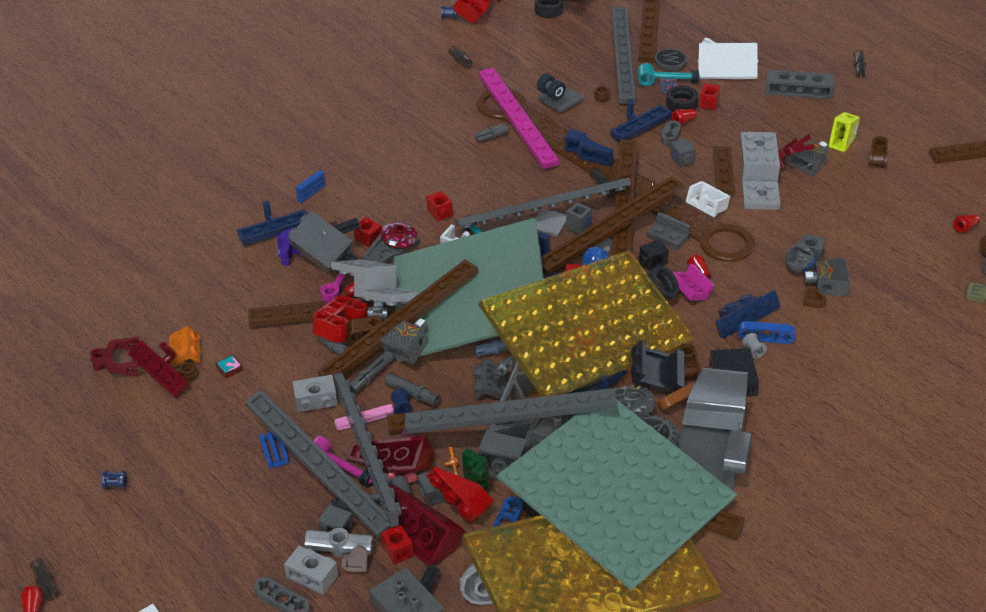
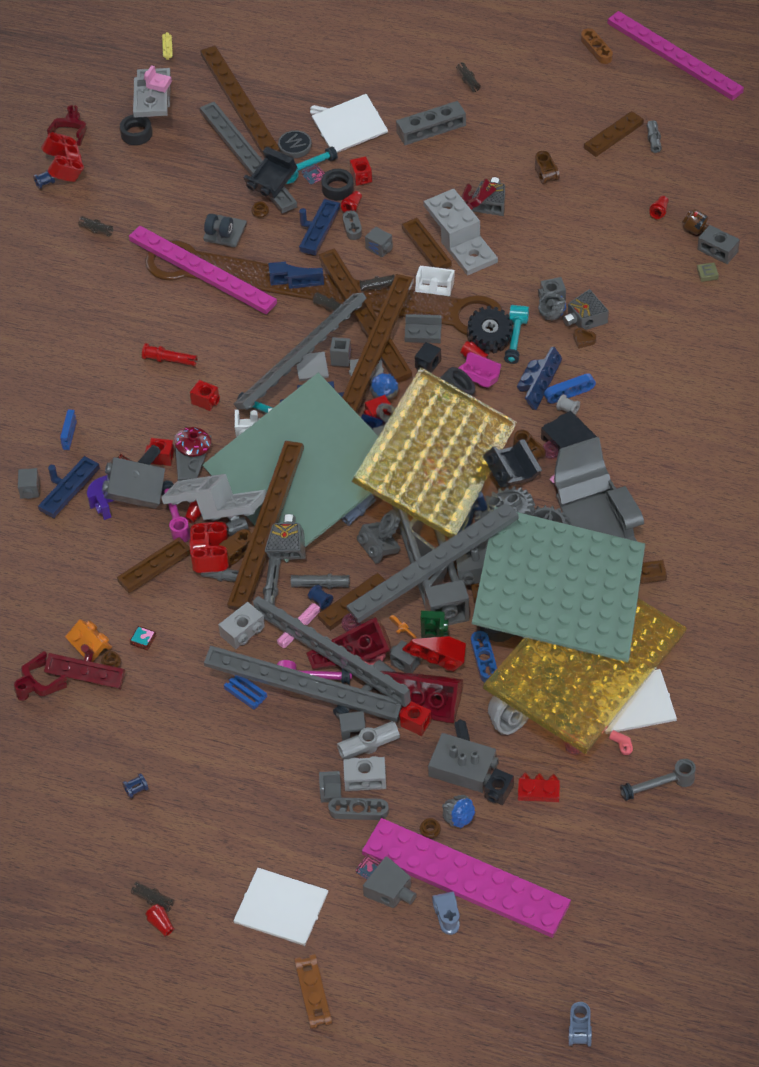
camera: 30 degrees left, 10 degrees up
(245, 211) = (28, 483): none -> dark grey brick
(270, 563) = (329, 785): none -> dark grey panel
(356, 561) = (394, 747): tile -> none
(432, 163) = (160, 354): none -> red pin
(491, 132) = (190, 297): dark grey axle -> none
(629, 69) = (271, 173): none -> black panel
(651, 180) = (376, 283): none -> clear smoke pin
(675, 397) = (543, 478): dark orange beam -> none
(730, 264) = (483, 337): none -> black bush
(762, 255) = (518, 315): none -> teal piece
(844, 126) = (504, 153): neon yellow torso -> none

